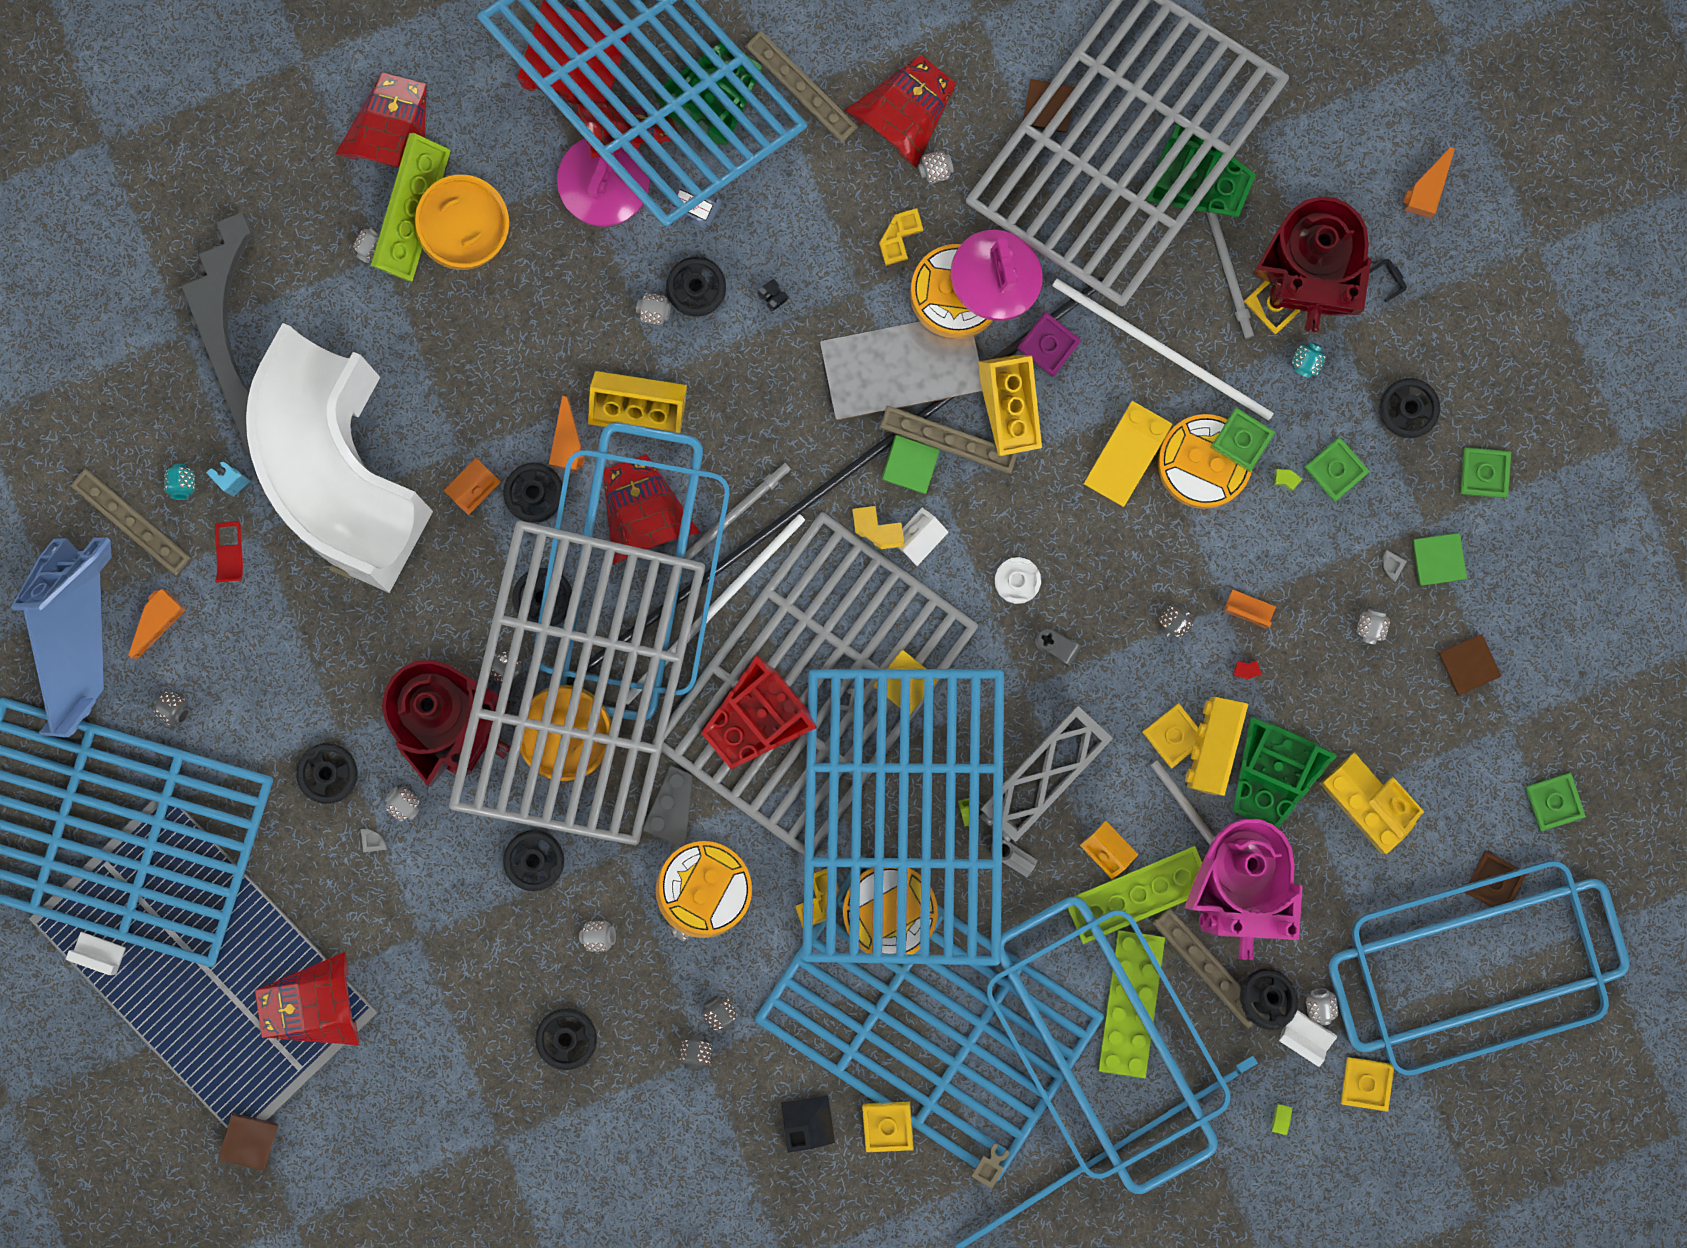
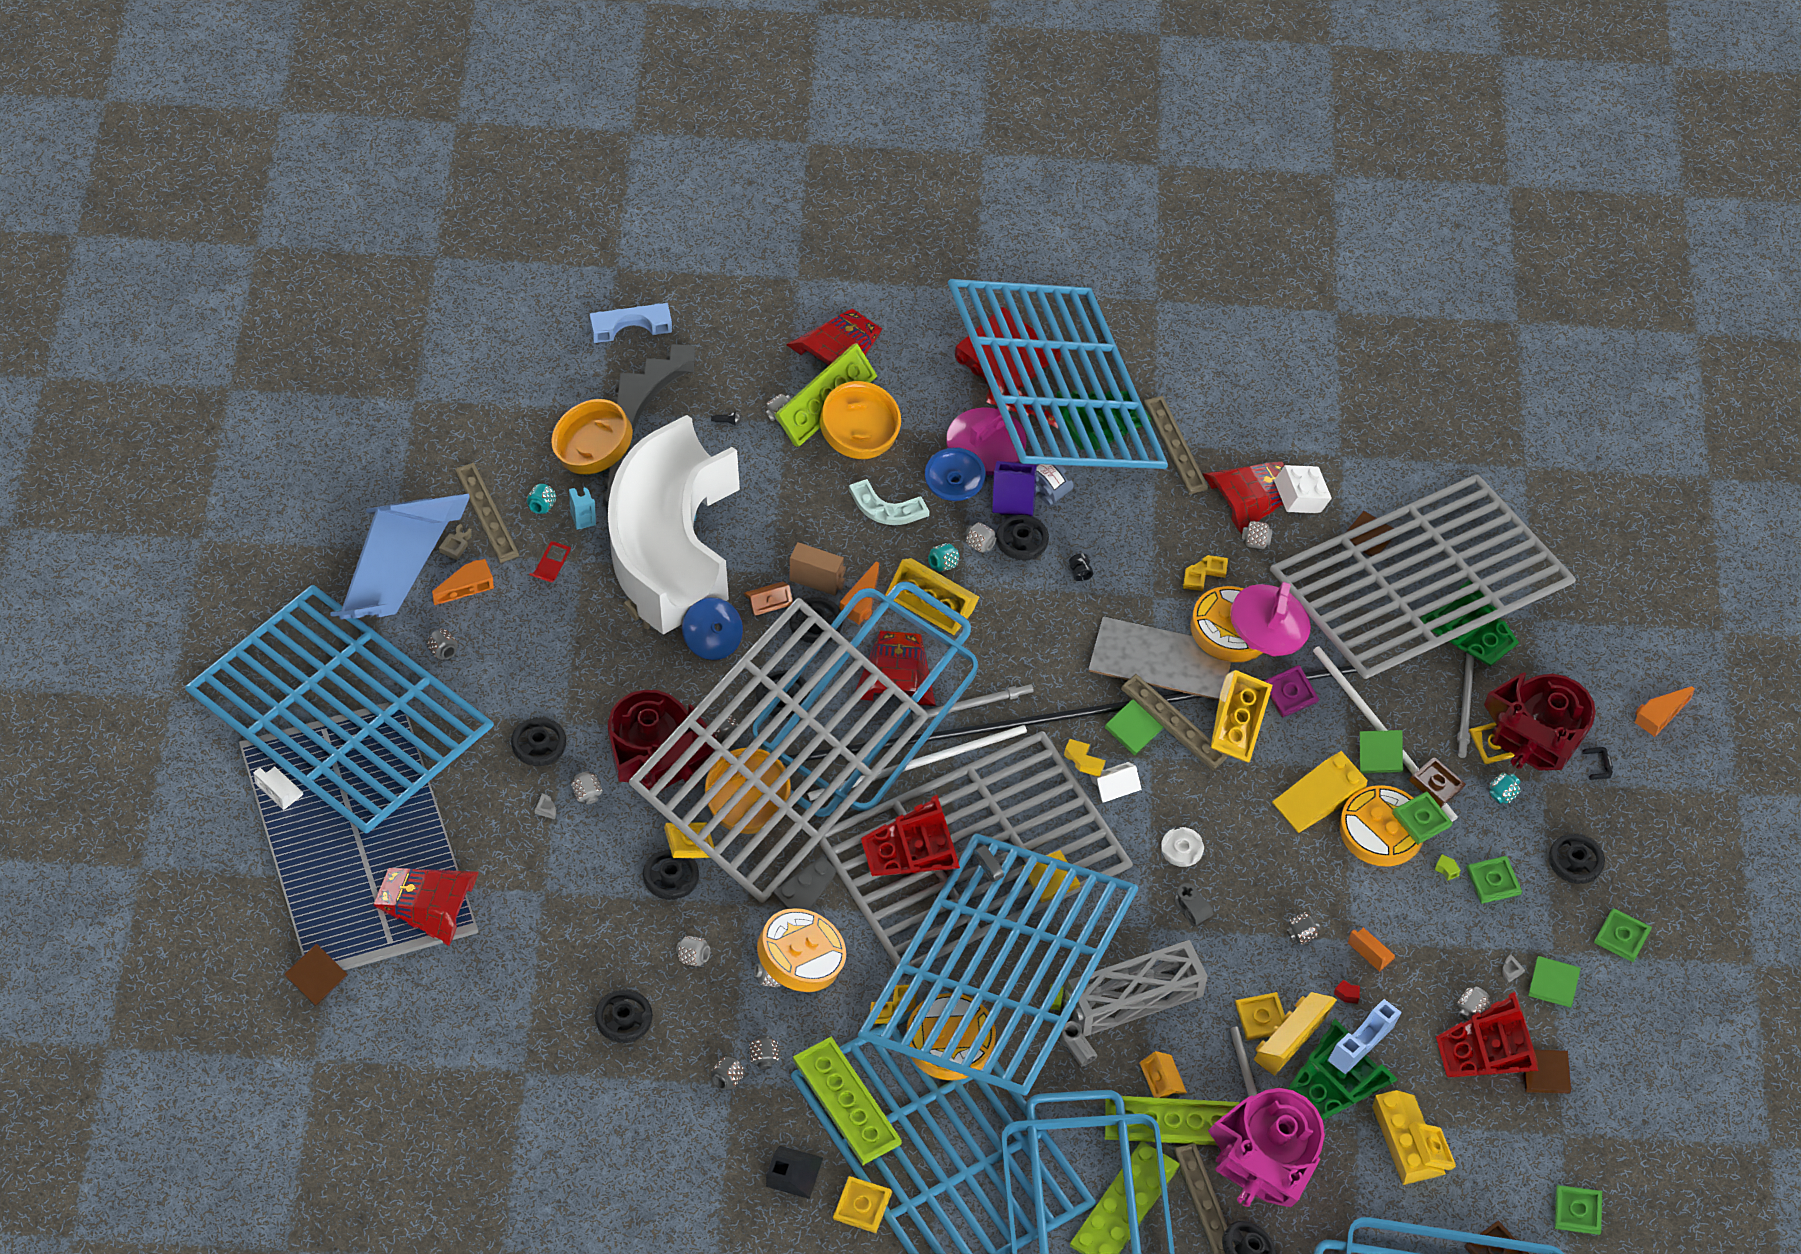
camera: 20 degrees right, 30 degrees down
(119, 581) = (455, 544): none -> dark tan plate
(134, 225) = (654, 318): none -> light blue arch
(193, 383) = (592, 436): none -> light orange piece
(327, 278) = (733, 418): none -> black piece
(423, 553) = (700, 631): none -> blue dish
(507, 435) = (817, 569): none -> medium nougat brick
(529, 833) = (681, 845): none -> yellow tile
(538, 323) = (886, 512): none -> light aqua plate
(590, 228) = (955, 465): none -> blue dish
(627, 352) = (943, 557): none -> teal head
(663, 243) = (1014, 488): none -> dark purple brick
(823, 1029) = (847, 1100): none -> lime plate
(843, 709) = (989, 863): none -> dark grey beam
(959, 88) = (1302, 489): none -> white brick
(1169, 375) = (1381, 751): none -> bright green tile
(1239, 384) = (1437, 781): none -> reddish brown tile
(1282, 739) = (1371, 1032): none -> light blue arch
(1408, 666) = (1489, 1042): none -> red wedge

